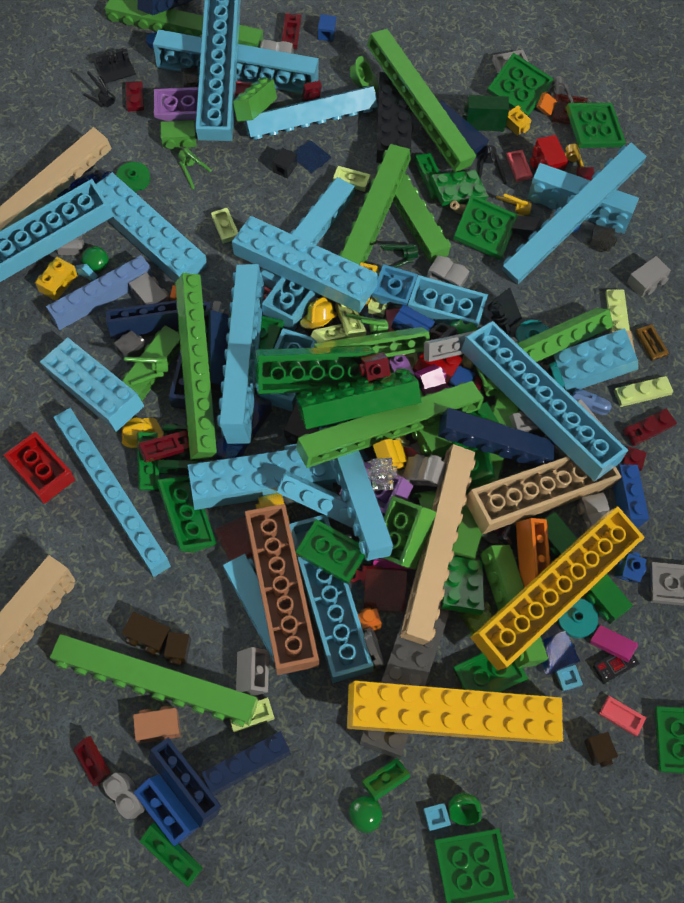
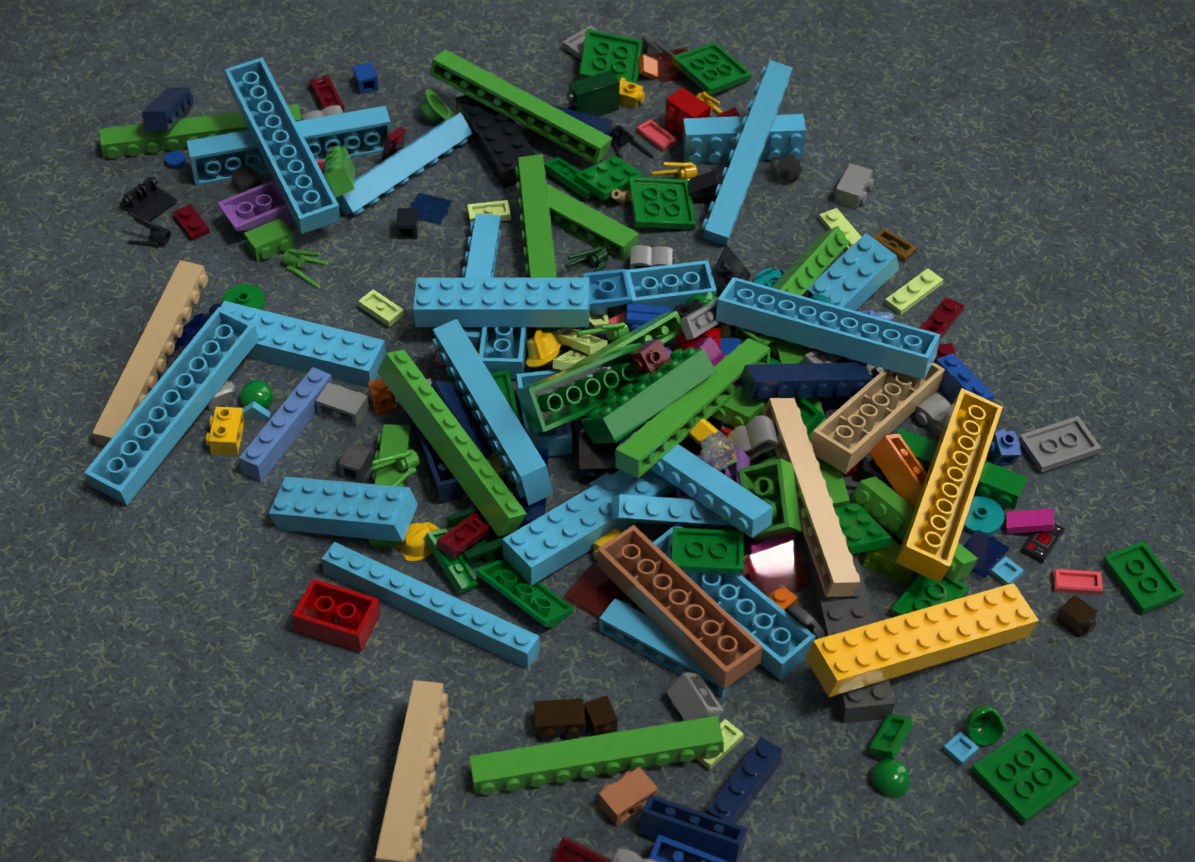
camera: 25 degrees left, 15 degrees down
(142, 318) = (355, 427): dark blue brick -> none

